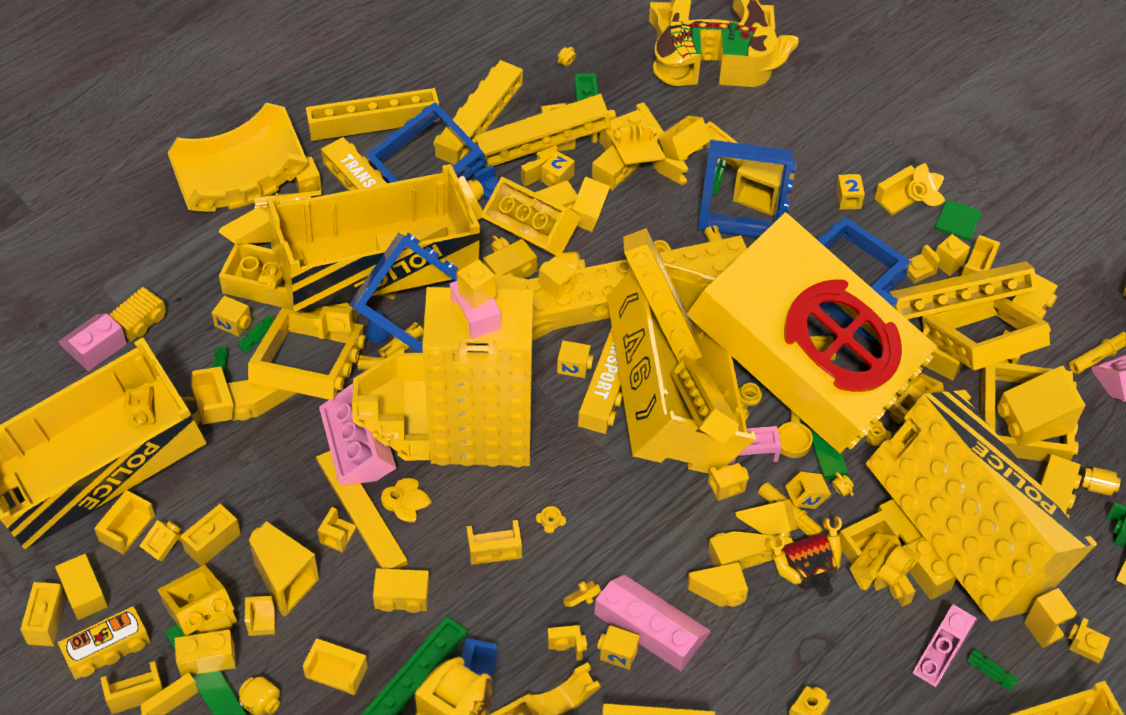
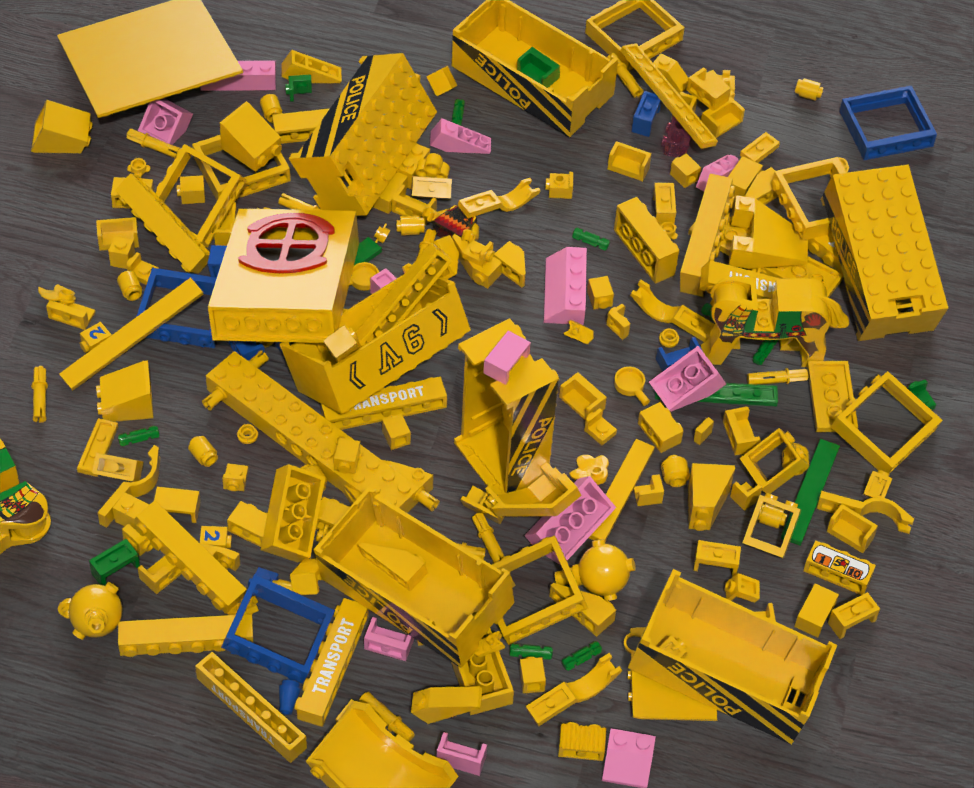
camera: 125 degrees left, 0 degrees up
(190, 335) = (577, 691): none -> yellow piece
(204, 225) = (461, 756): none -> bright pink panel
(205, 653) = (800, 492): yellow brick -> none
(211, 395) = (617, 625): yellow panel -> none
(256, 642) = (766, 446): none -> yellow window
(277, 418) = (601, 570): none -> yellow piece
(340, 570) = (675, 471): none -> yellow head
(362, 145) = (288, 694): none -> blue cone
(364, 628) = (703, 430): none -> yellow tile
(378, 273) = (449, 515): blue window -> none
(429, 642) = (687, 380): none -> bright pink slope
(447, 538) = (598, 427): none -> yellow bracket
(476, 283) = (504, 343): yellow brick -> none
(480, 601) = (631, 382): none -> yellow piece
(510, 675) = (669, 334): none -> yellow plate
(540, 54) = (95, 610): none -> yellow piece
(590, 202) = (234, 494): yellow panel -> none
(616, 220) = (235, 477): none -> yellow bracket
(637, 144) = (158, 484): yellow hinge -> none
(662, 208) = (203, 451): none -> yellow brick
(708, 694) = (591, 239): none -> green axle
(736, 224) = (168, 381): blue window -> none
(745, 542) = (479, 253): none -> yellow bracket
(808, 490) = (404, 246): yellow brick -> none
(814, 131) = (39, 388): none -> yellow axle
(821, 620) = (488, 201): none -> yellow piece
(833, 209) = (131, 334): none -> yellow tile
(843, 510) = (410, 225): none -> yellow brick
(905, 244) = (129, 285): none -> yellow brick
(958, 220) = (73, 269): green piece -> none
(1058, 681) = (441, 81): none -> yellow panel
(1070, 325) = (138, 167): none -> yellow plate

